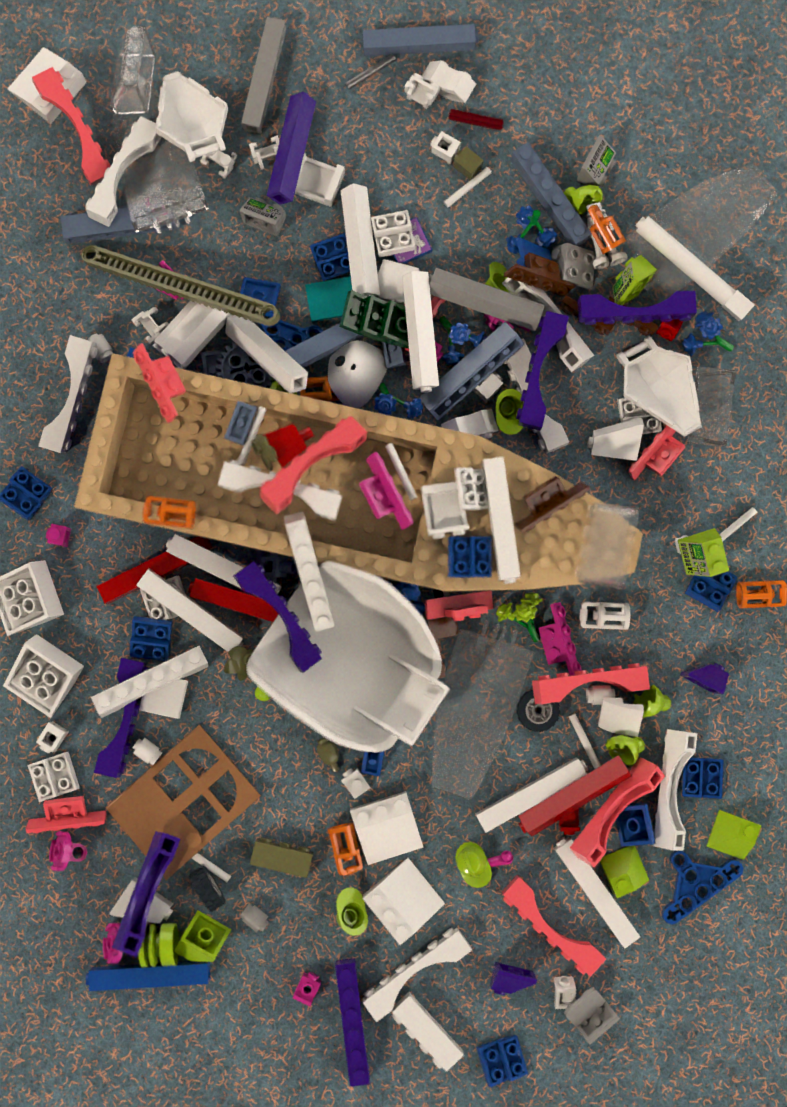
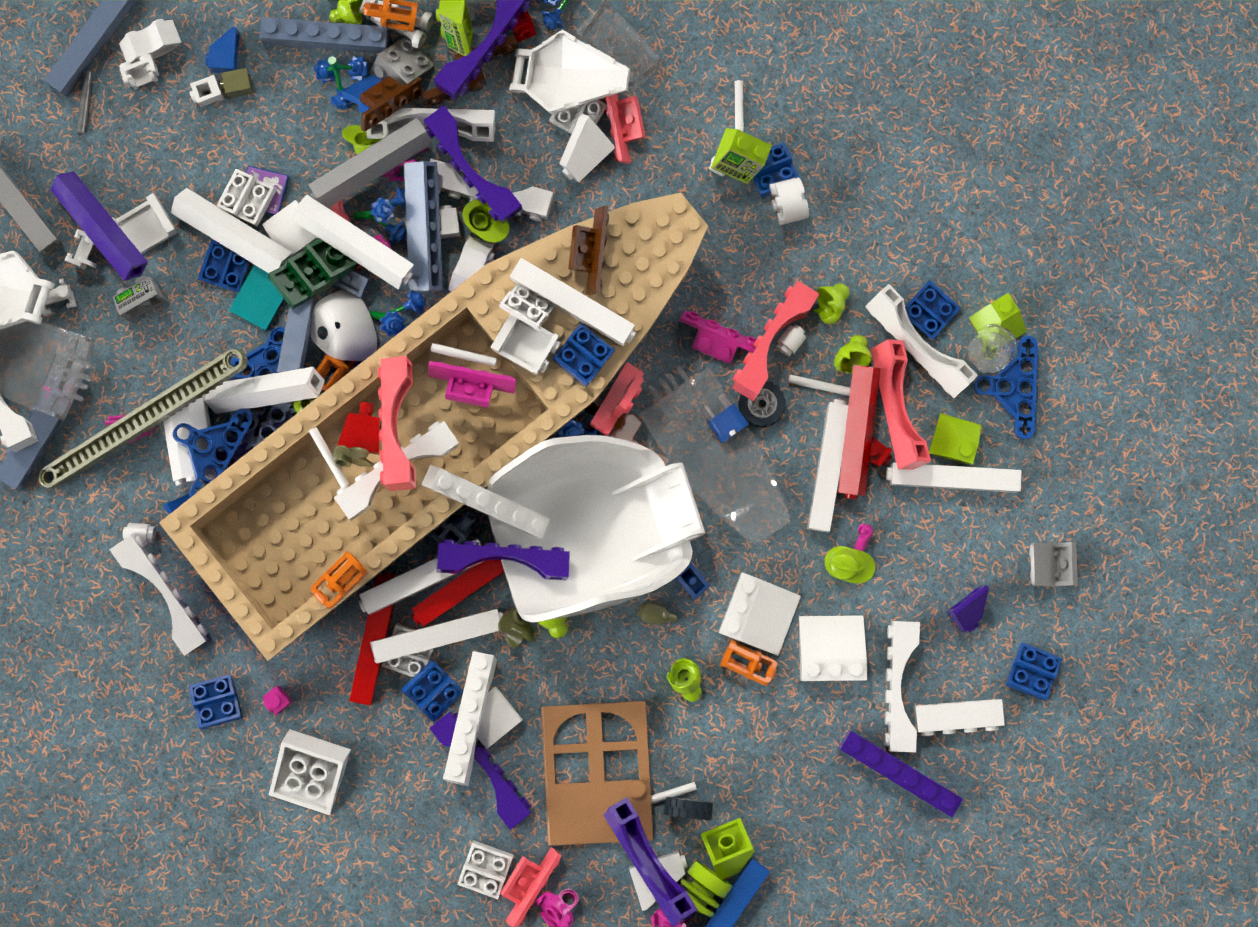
camera: 45 degrees left, 0 degrees up
(43, 675) = (389, 810): white slope -> none
(44, 739) = (442, 839): white brick -> none
(146, 751) = (528, 770): white brick -> none
(149, 324) = (155, 473): white piece -> none
(162, 380) = (218, 497): coral bracket -> none
(205, 347) = (216, 441): none -> blue beam
(240, 423) = (311, 458): sand blue plate -> none
(254, 918) = (746, 788): light grey brick -> none
(261, 290) = (203, 352): blue tile -> none
(281, 857) = (712, 724): olive brick -> none
(294, 820) = (691, 688): none -> lime piece
(303, 996) = (841, 799): dark pink brick -> none
(351, 911) = (806, 700): lime piece -> none
(355, 782) = (699, 610): white bracket -> none
(467, 187) = (257, 100): white bar -> none
(476, 119) = (202, 46): dark red axle -> none
(482, 137) = (224, 52): none -> blue slope
(506, 696) = (727, 422): none -> blue piece
(524, 611) = (667, 348): lime plant -> none
(564, 991) = (1017, 572): white bracket -> none
(581, 952) = (998, 530): coral arch -> none
(602, 615) = (723, 285): white piece -> none
(607, 545) = (667, 230): clear windscreen -> none
(620, 717) = (823, 338): white slope -> none
(635, 825) = (925, 399): blue slope -> none
(699, 614) = (789, 201): none -> white brick
(701, 850) = (982, 346): none -> clear brick
(708, 677) = (849, 236): dark purple slope -> none
(766, 594) = (817, 130): orange piece -> none

